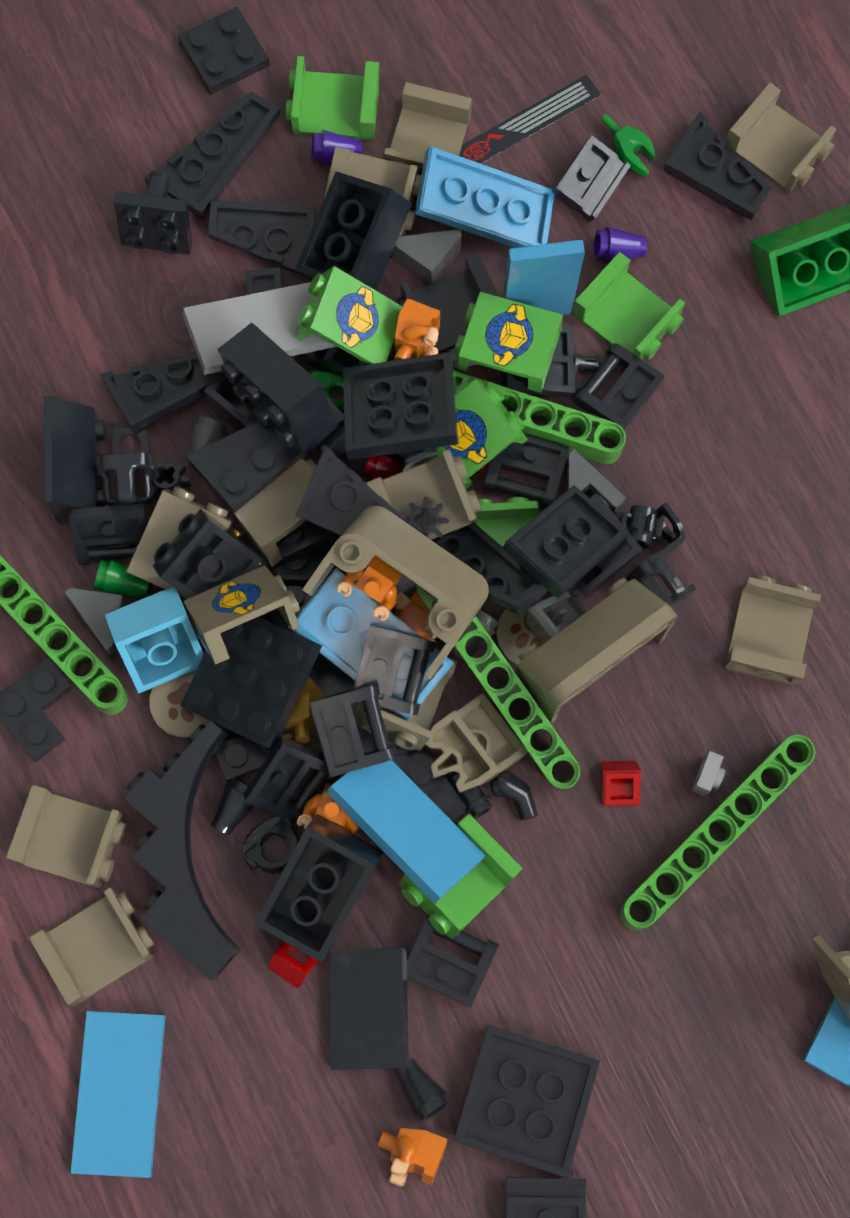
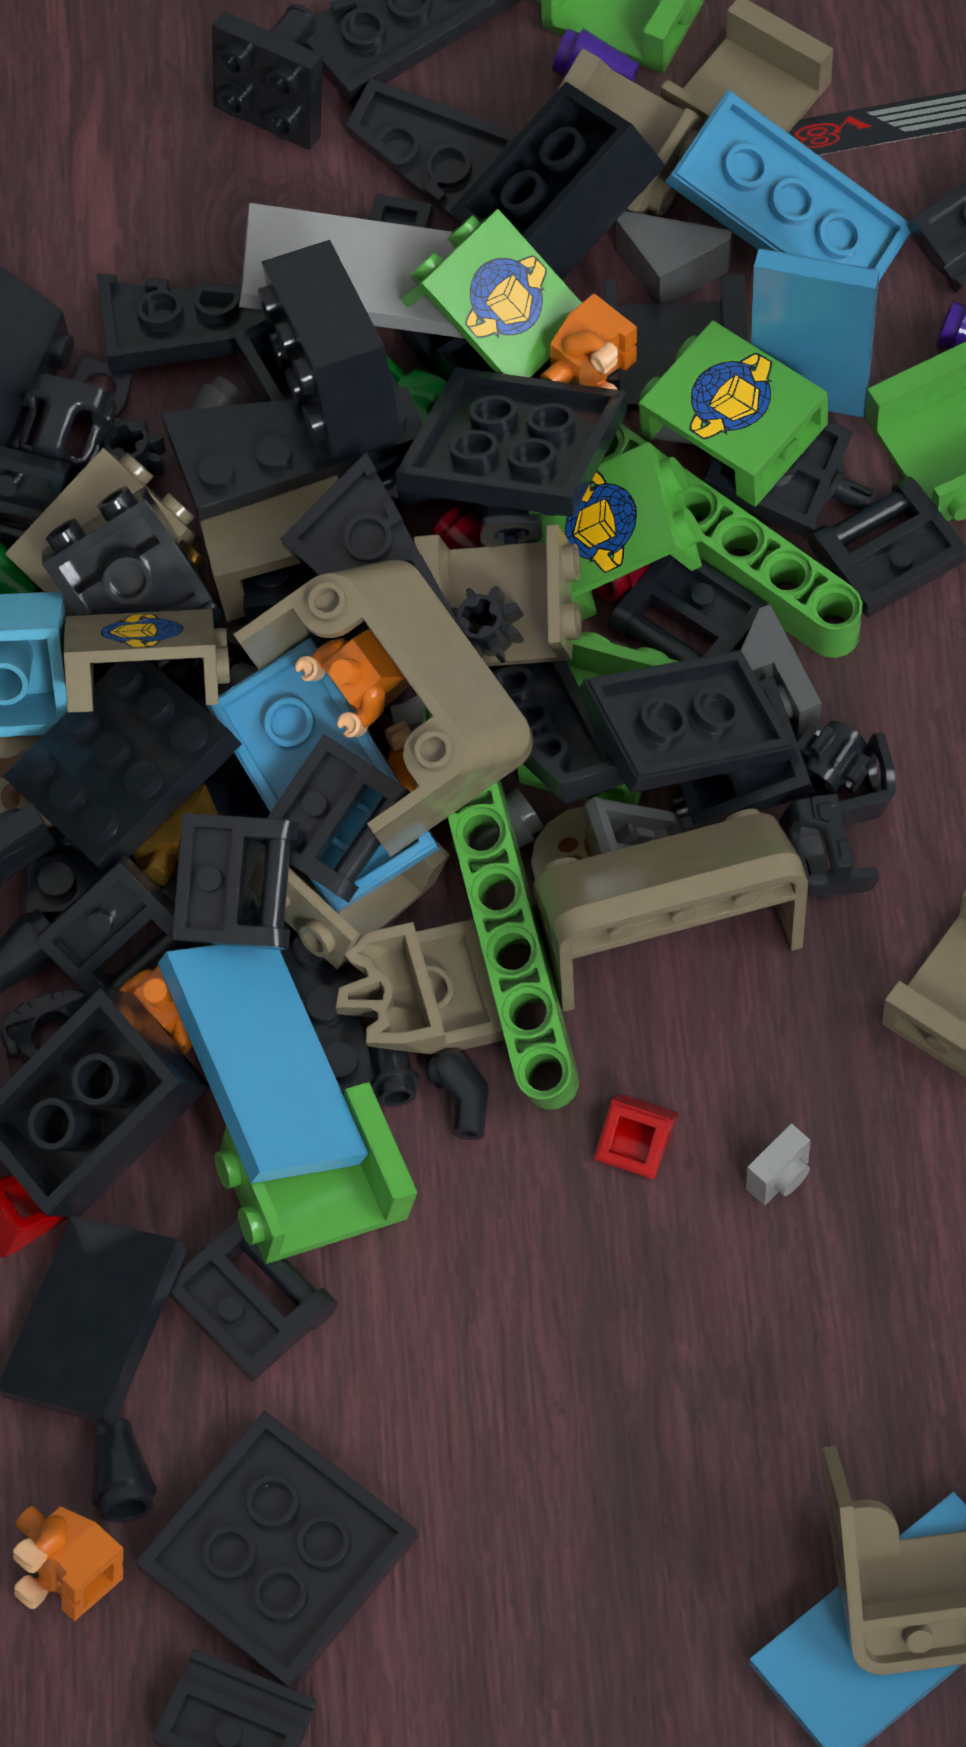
camera: 30 degrees right, 10 degrees down
(730, 819) = (738, 1283): bright green beam -> none

